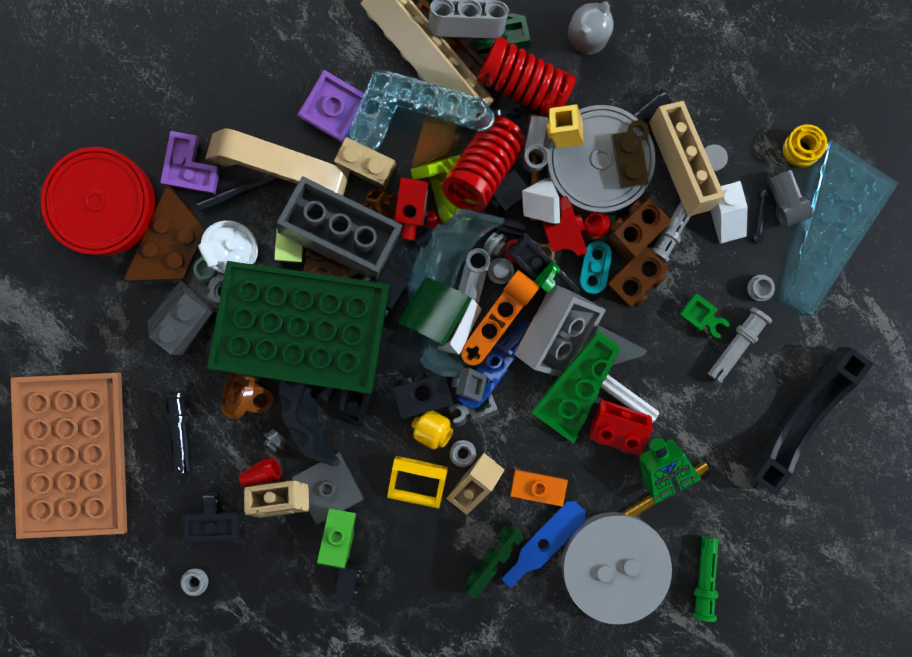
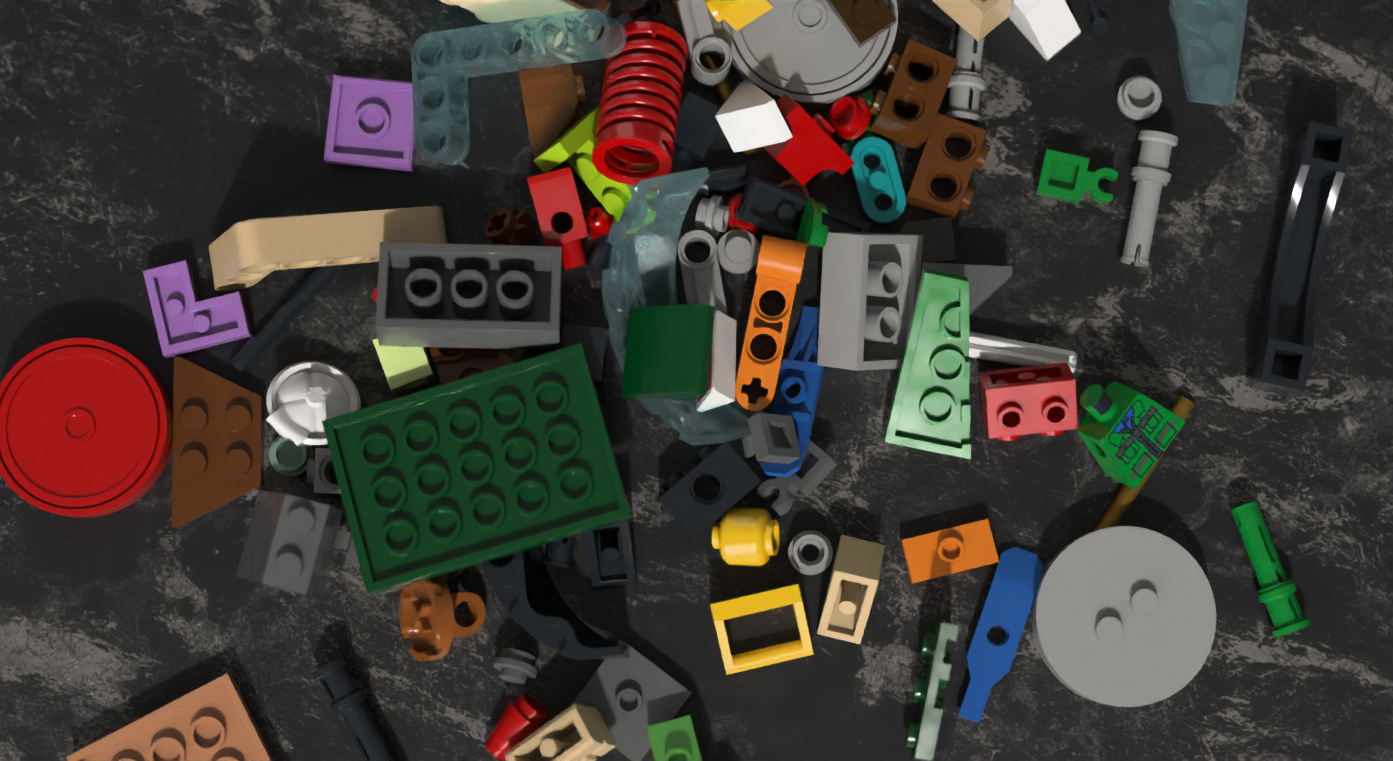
camera: 25 degrees left, 5 degrees down
(365, 163) = (461, 183): tan brick -> none

